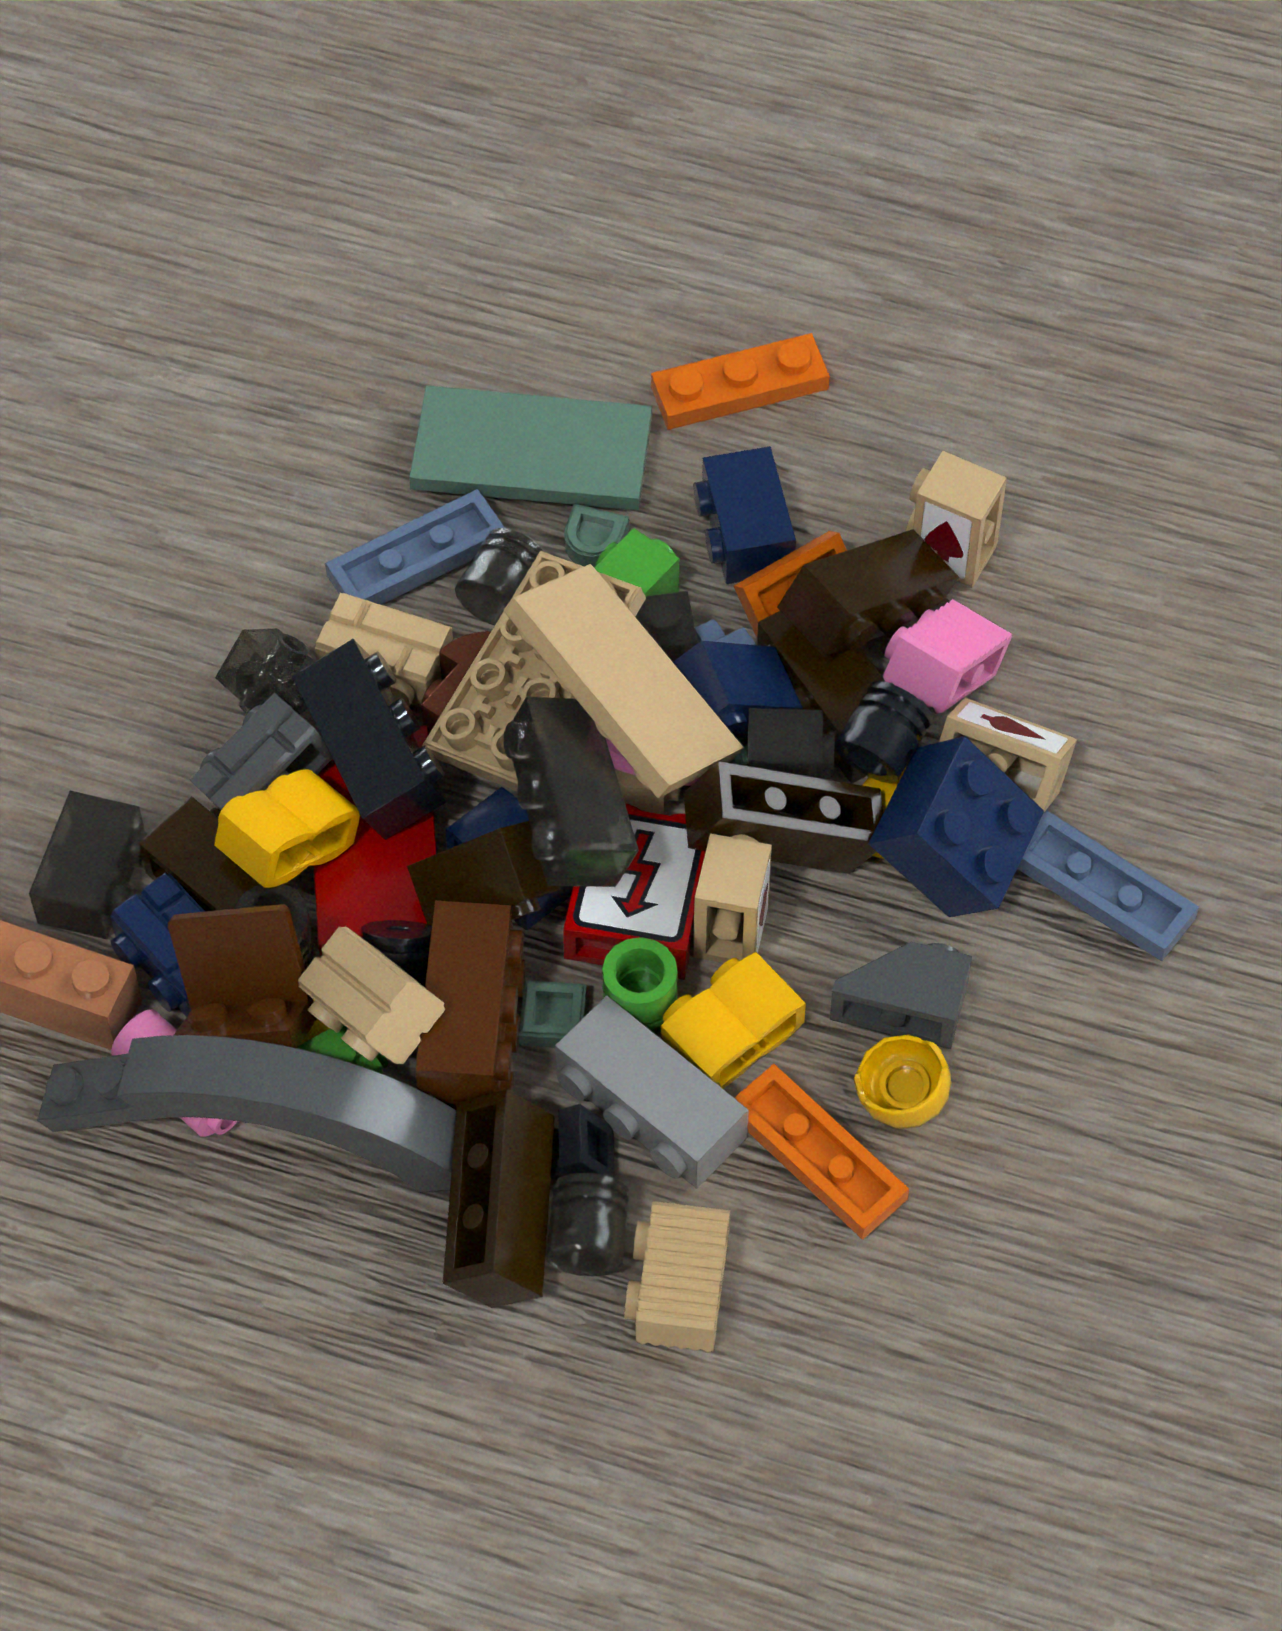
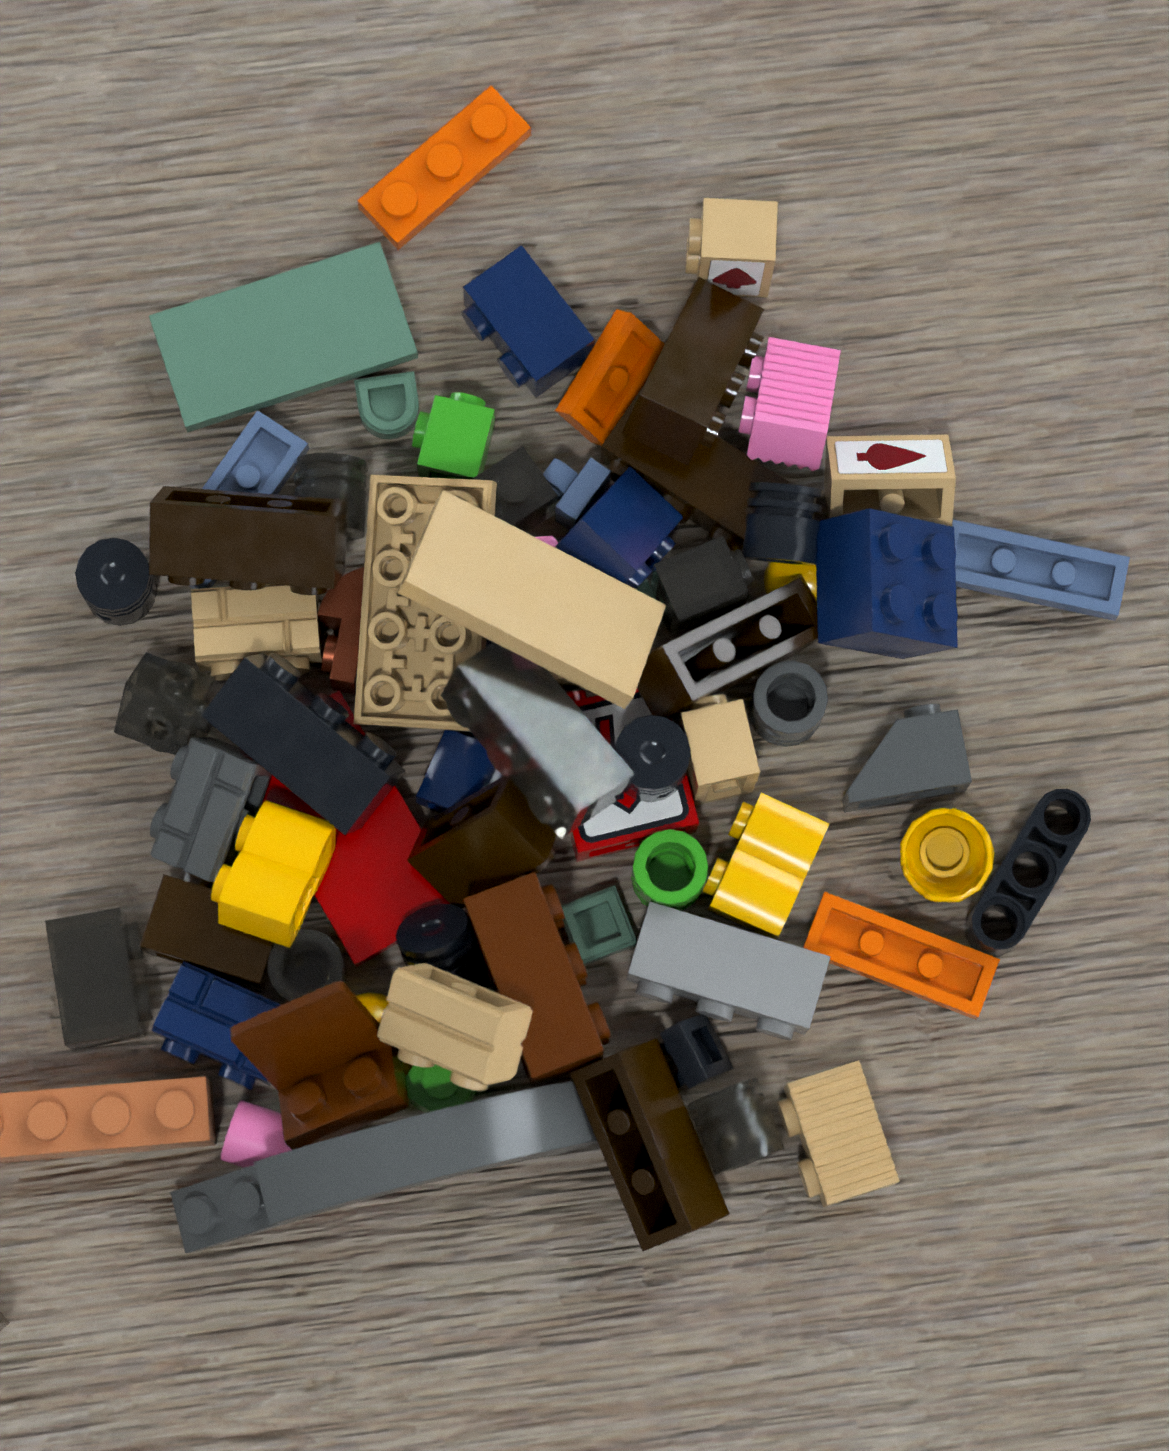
camera: 30 degrees left, 20 degrees up
(284, 568) = (116, 581): none -> black piece
(409, 564) = (247, 539): none -> dark brown brick
(666, 867) = (656, 754): none -> black piece
(820, 897) = (788, 703): none -> dark grey piece
(983, 1104) = (1048, 851): none -> black beam

